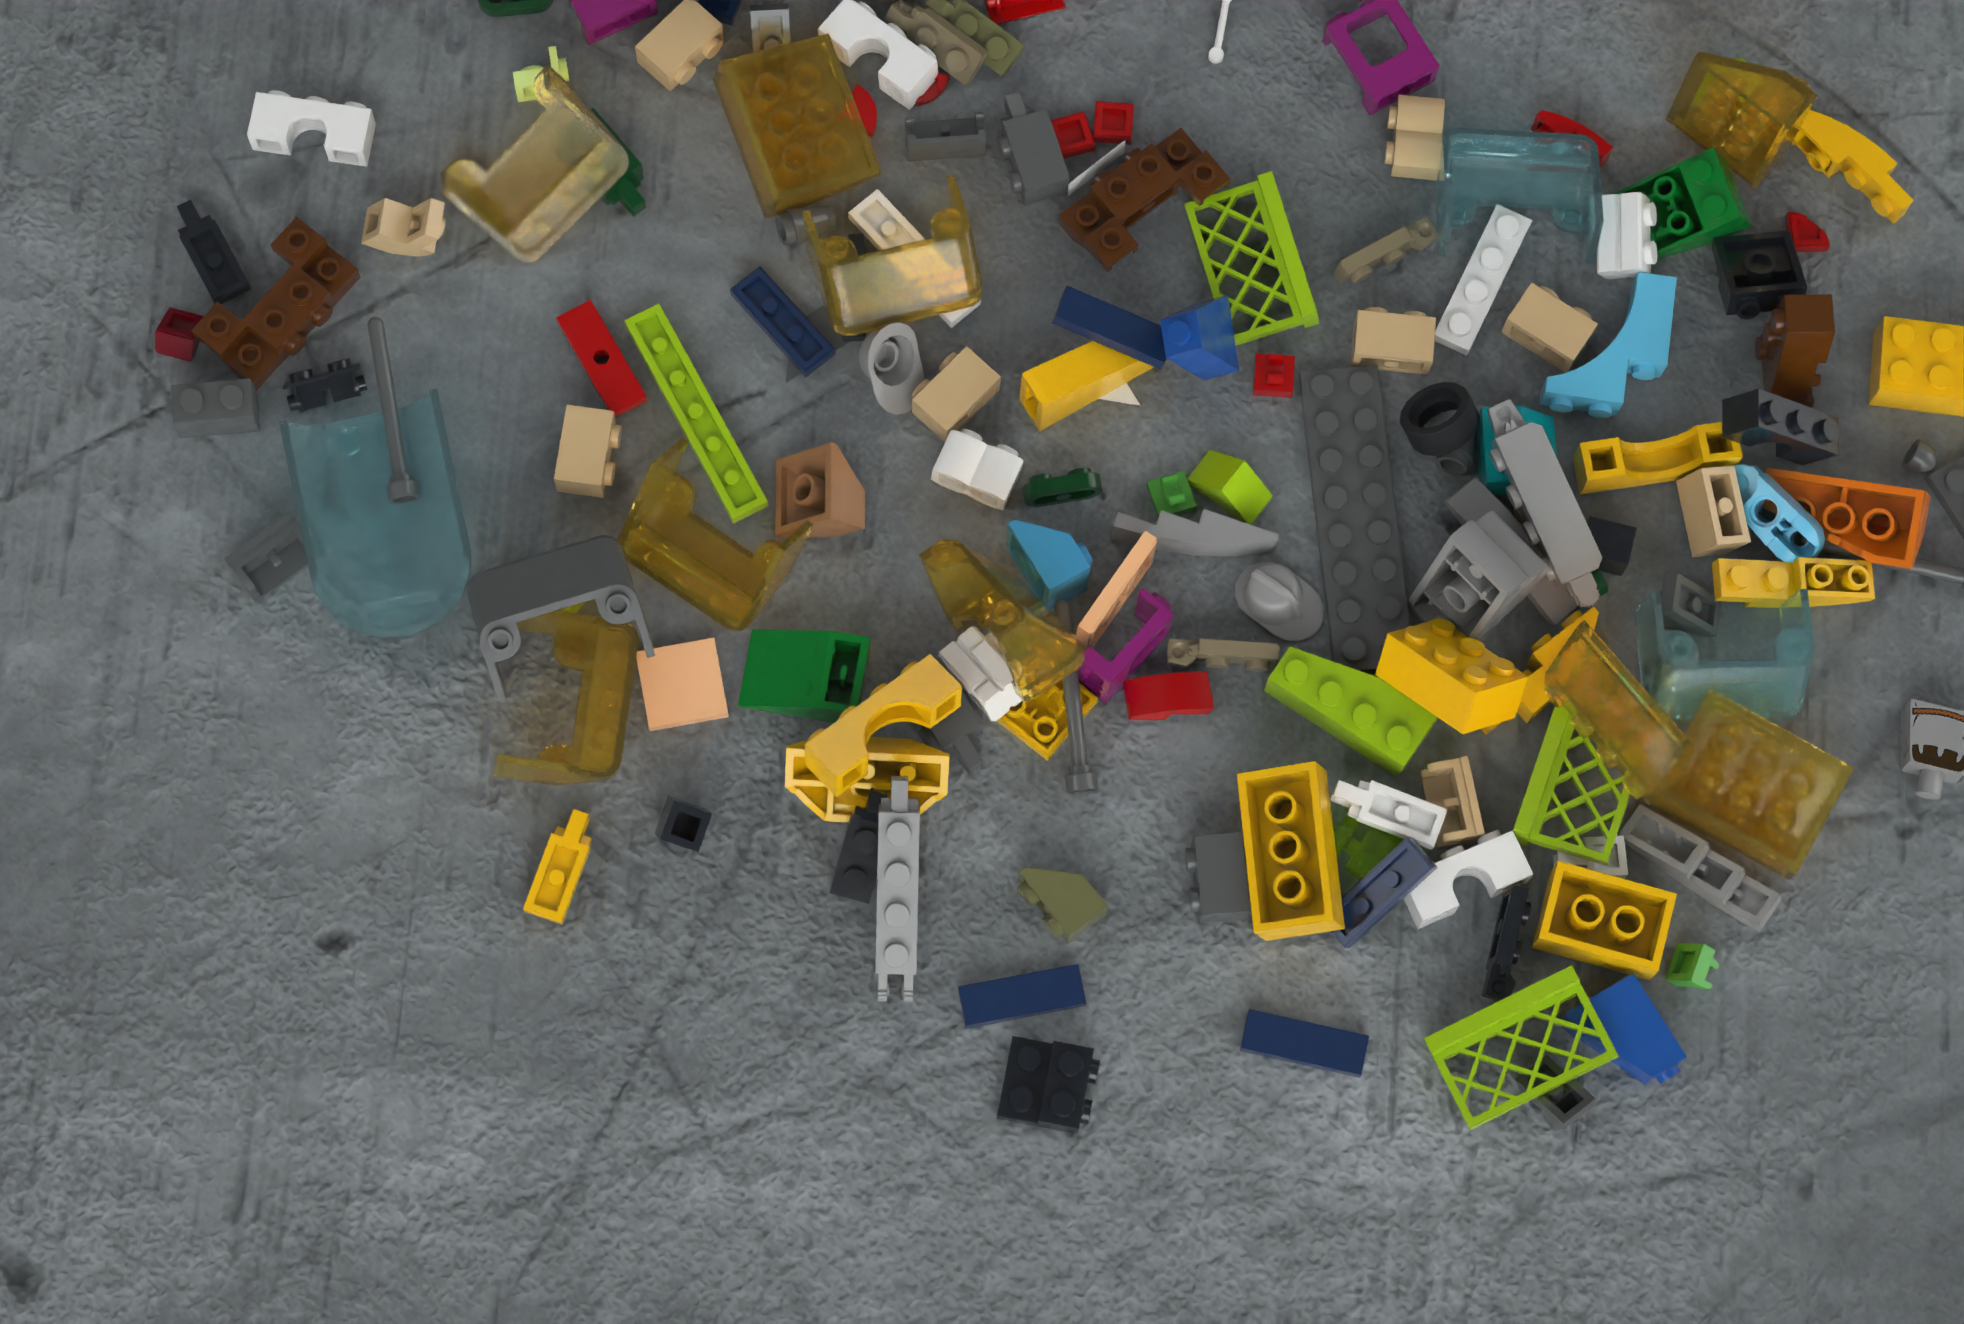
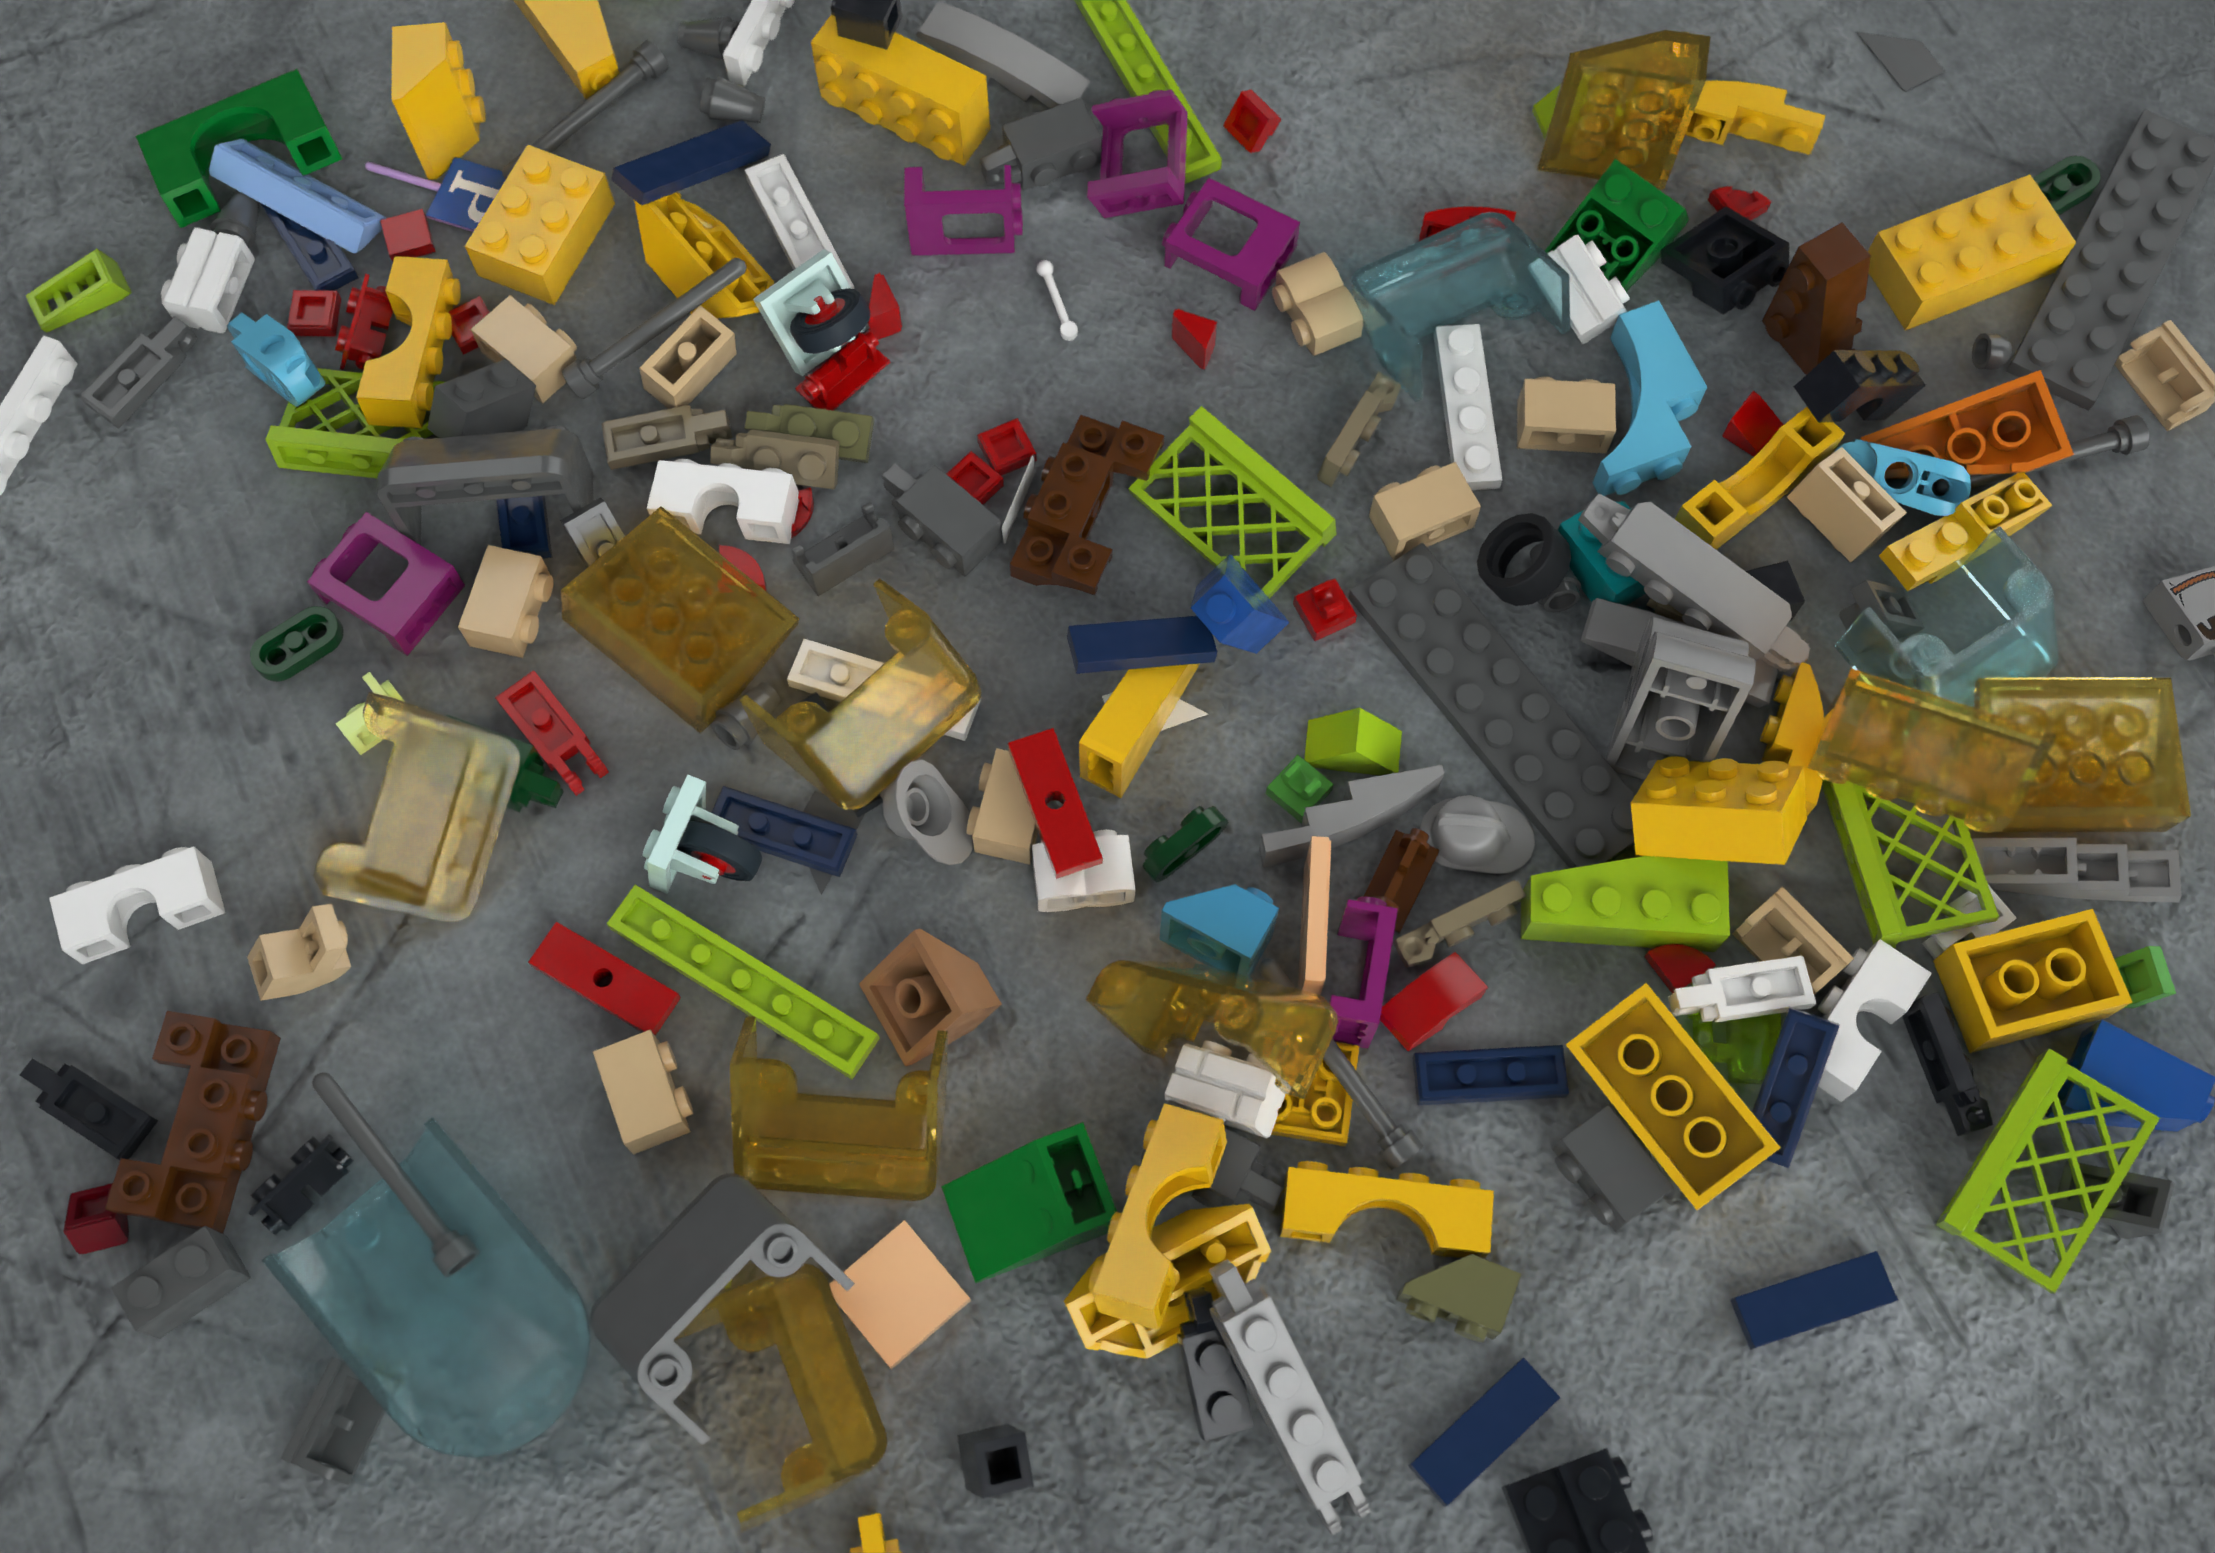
camera: 25 degrees left, 5 degrees down
(660, 155) = (549, 728): none -> red hinge
(717, 297) = (696, 842): none -> light aqua plate
(984, 387) = (1045, 779): none -> red tile
(1005, 786) = (1451, 1216): none -> yellow arch
(1178, 769) = (1490, 1075): none -> dark blue tile
(1203, 599) = (1403, 872): none -> reddish brown hinge
(1307, 112) = (1194, 335): none -> red slope
(1363, 767) = (1678, 964): none -> red tile
(1690, 410) = (1752, 425): none -> red slope

